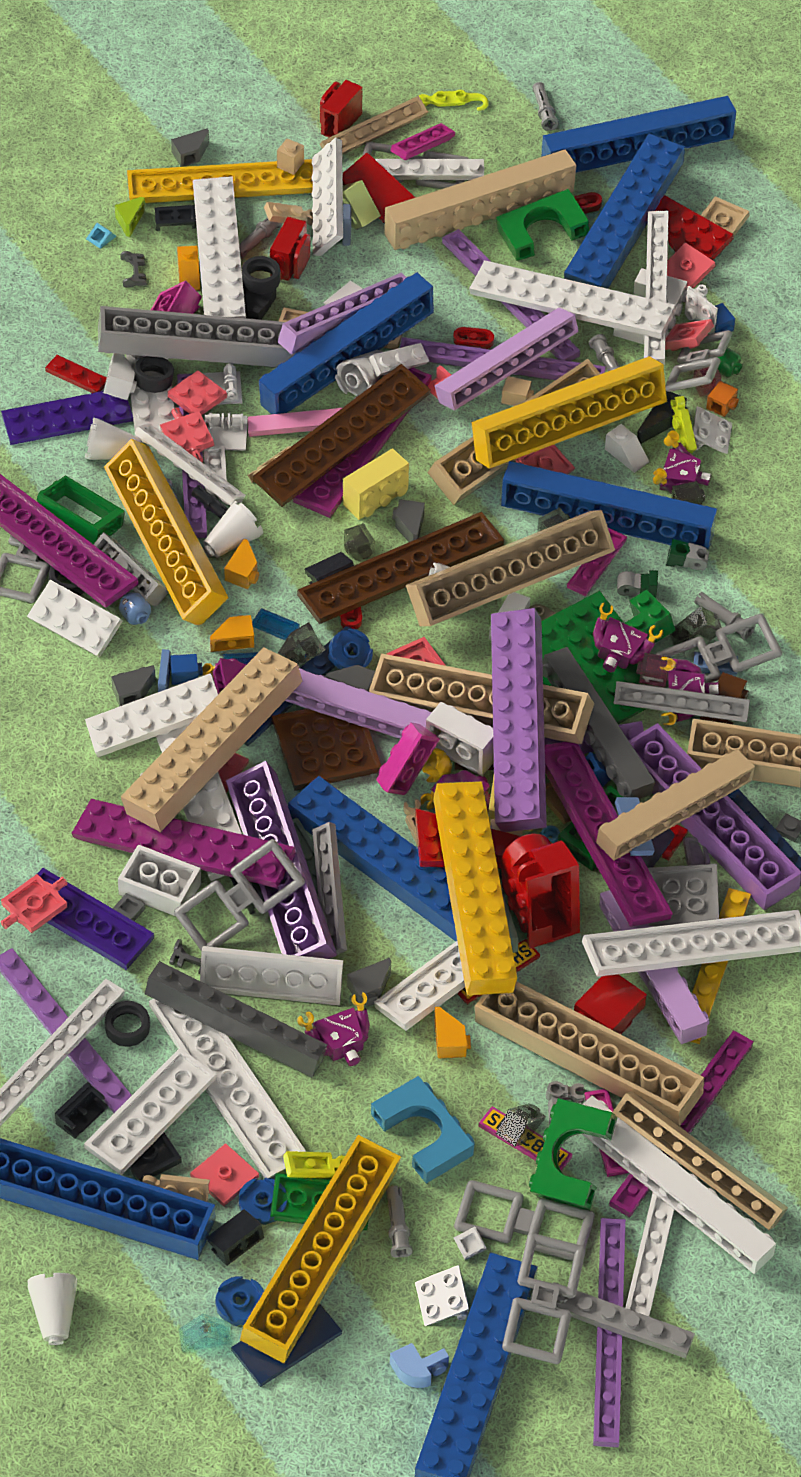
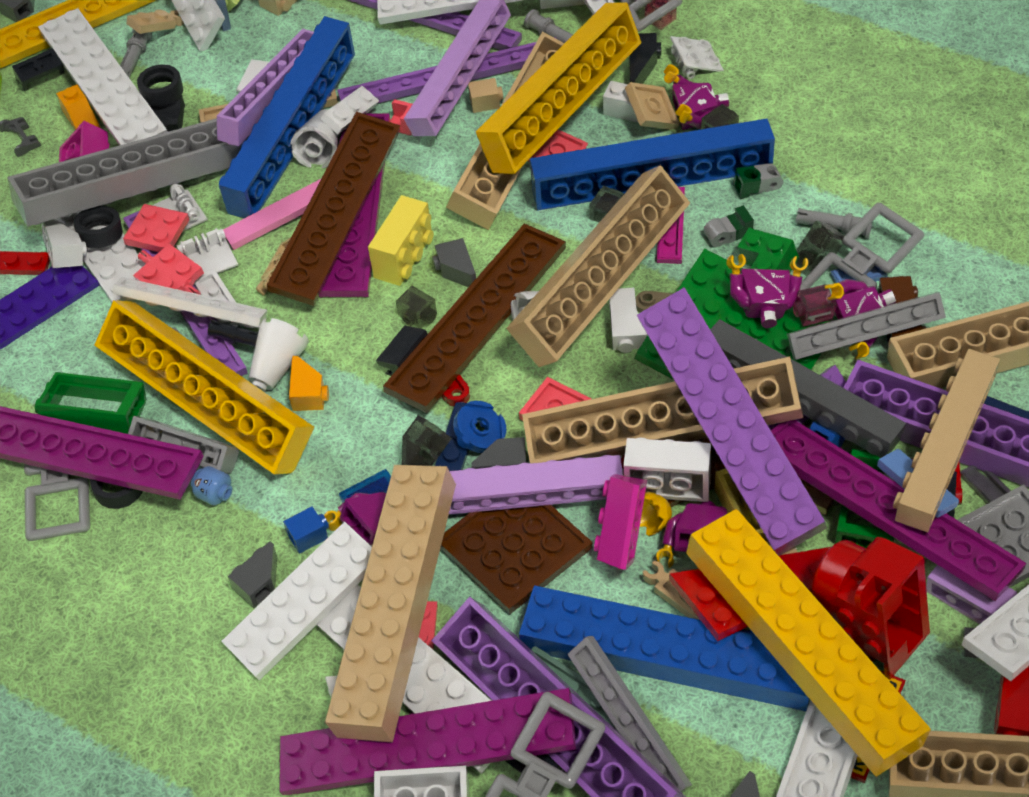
camera: 20 degrees left, 0 degrees up
(75, 618) = (148, 527): white plate -> none
(106, 440) = (82, 316): white cone -> none
(164, 672) = (284, 543): medium blue tile -> none
(233, 634) = (339, 465): light orange slope -> none
(274, 624) = (376, 435): tile -> none
(291, 248) = (177, 48): red brick -> none
(473, 337) = (408, 62): red plate -> none
(551, 831) = (828, 540): dark azure plate -> none
(641, 458) = (652, 106): none -> tan plate
(682, 424) = (668, 54): neon yellow plate -> none
(722, 399) = (687, 21): orange brick -> none

